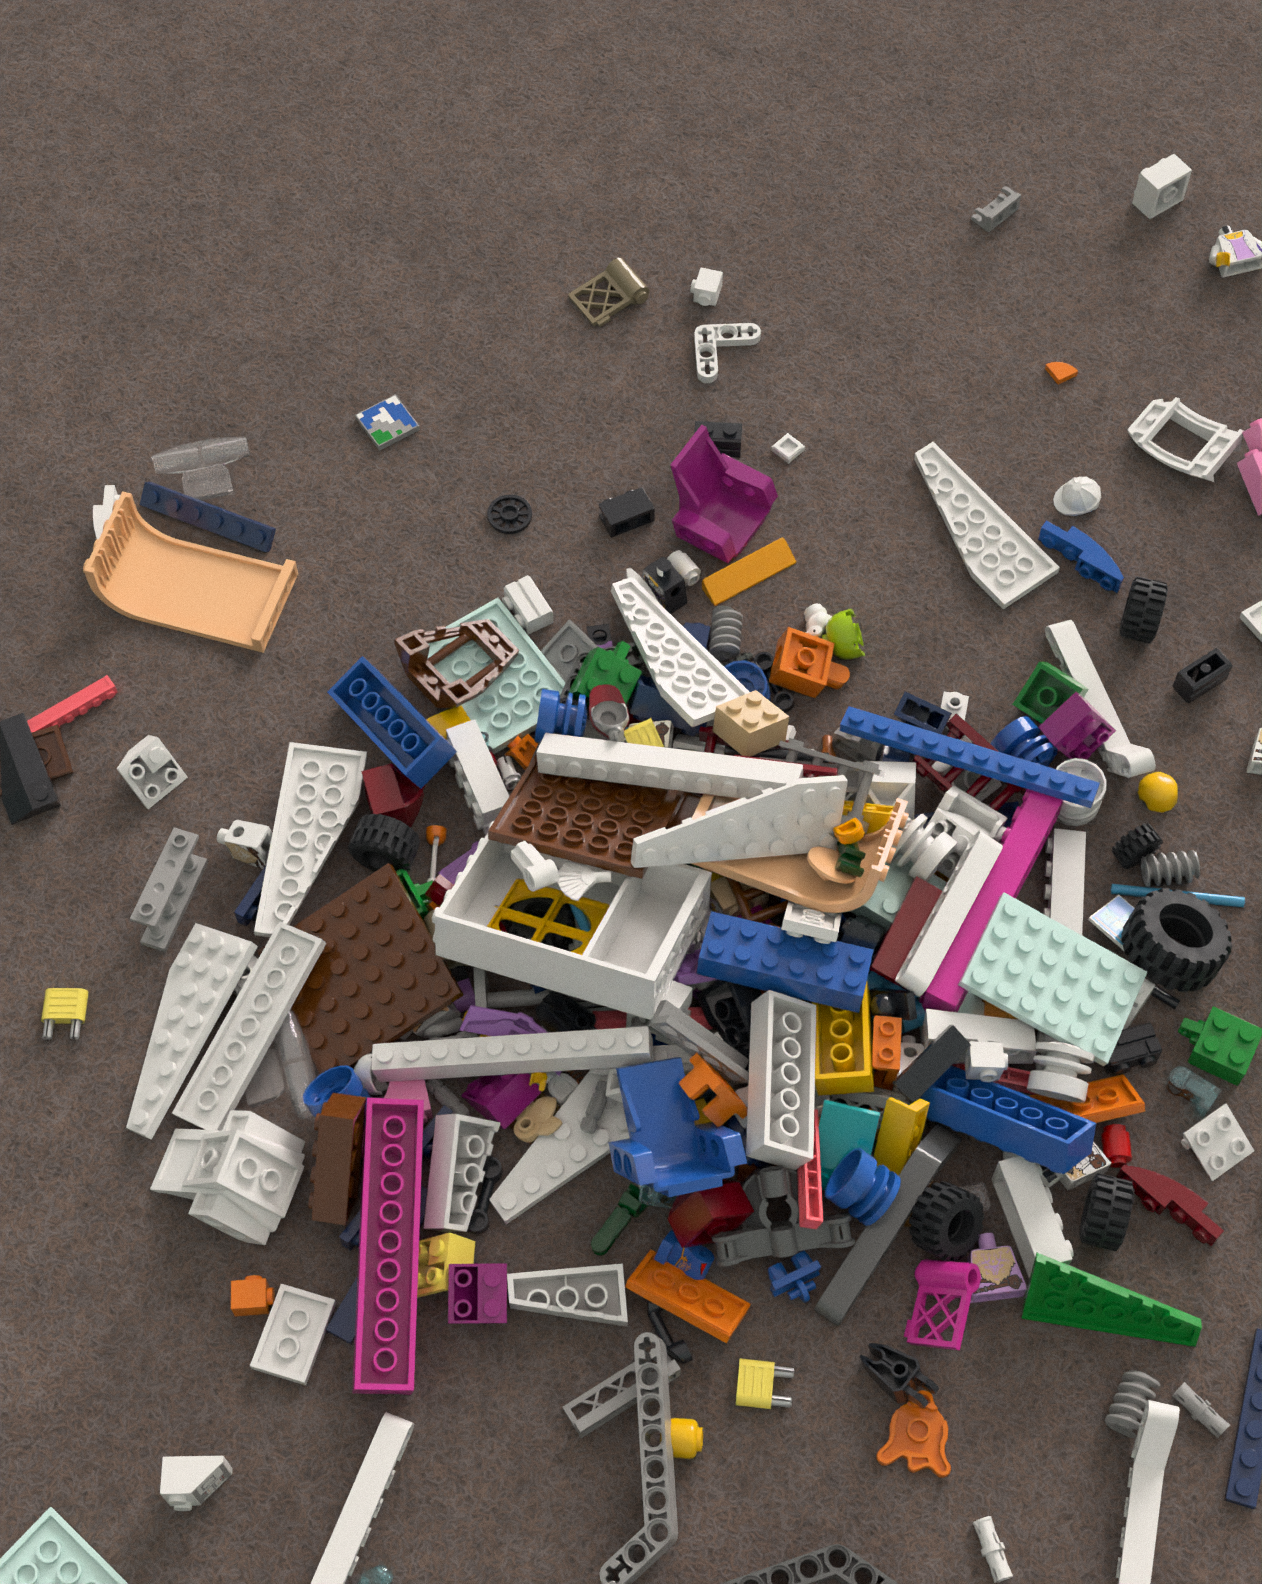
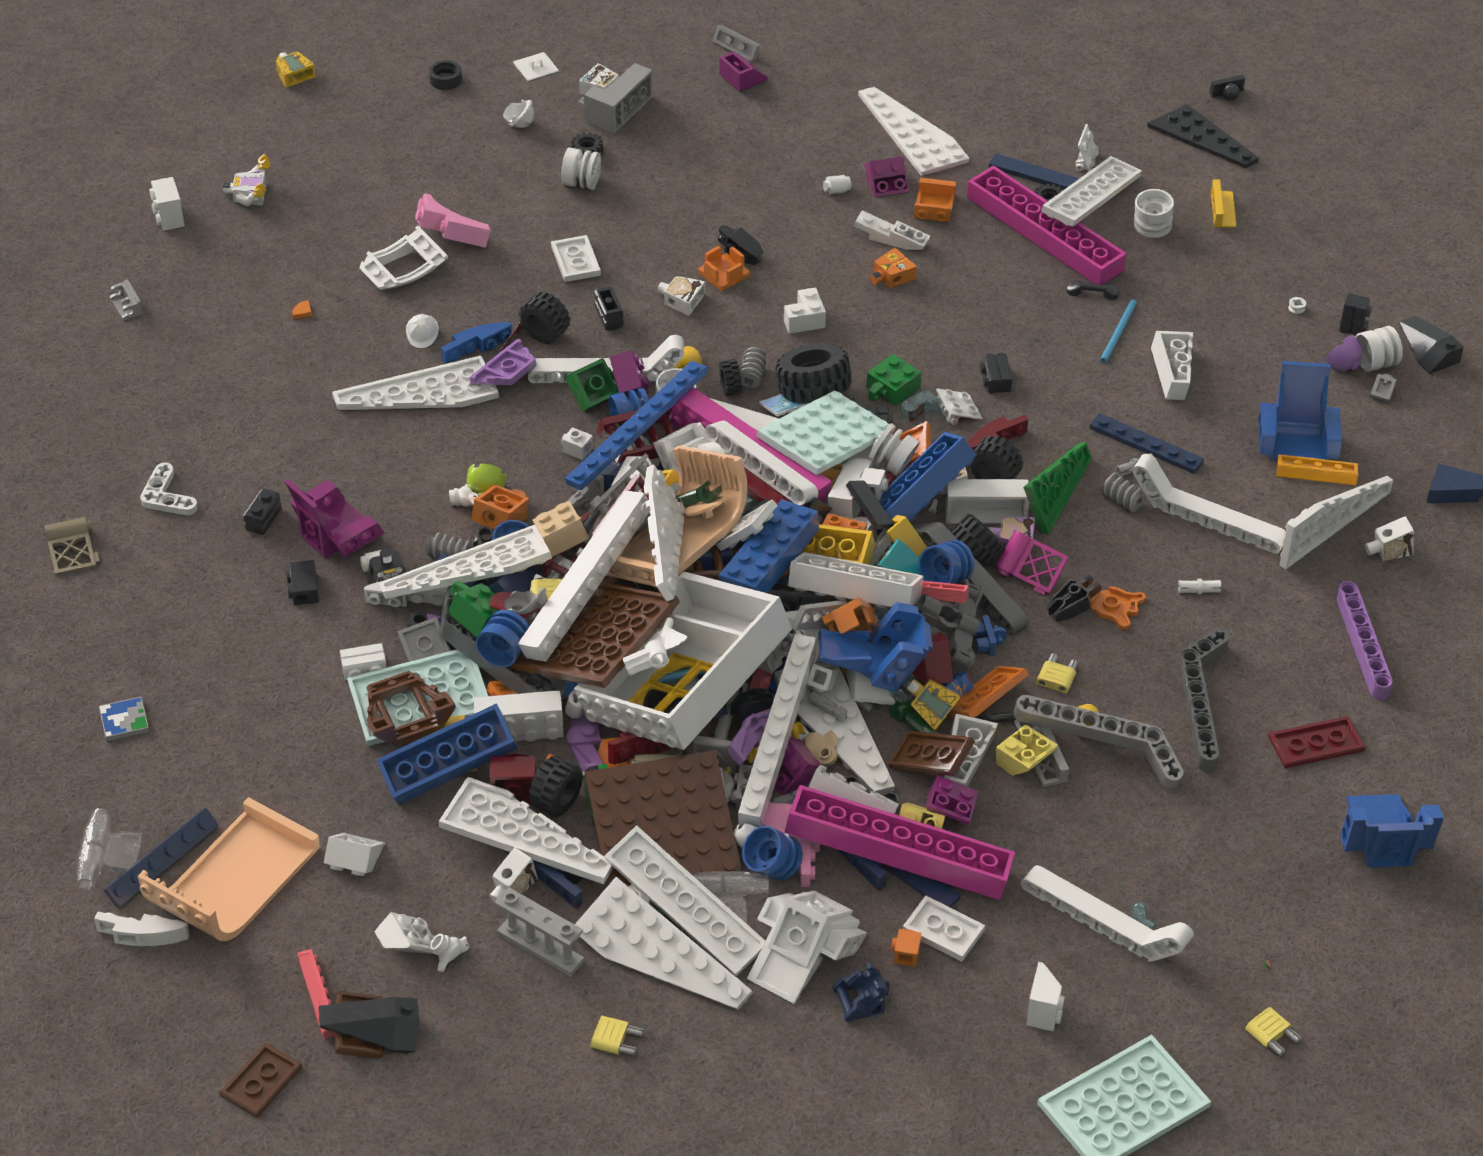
camera: 75 degrees left, 15 degrees down
(144, 812) = (448, 949): none -> white animal
(174, 1269) = (870, 989): none -> dark blue piece
(256, 682) = (352, 853): none -> white slope
(337, 1158) = (826, 850): reddish brown brick -> none
(509, 513) = (263, 658): black wheel -> none
(546, 1249) = (931, 753): none -> reddish brown piece
(596, 1368) = (1023, 750): none -> light yellow slope
(639, 1230) = (932, 701): none -> torso
(707, 287) = (103, 483): white brick -> none
(748, 571) = (396, 526): light orange slope -> none
(788, 448) = (291, 474): white tile -> none
(849, 831) = (683, 489): light orange tile -> none
(922, 713) = (581, 448): dark blue slope -> none
(1046, 597) = (506, 366): none -> medium lavender wing
(1078, 587) = (512, 336): none -> sticker
(1214, 899) = (768, 378): dark azure piece -> none

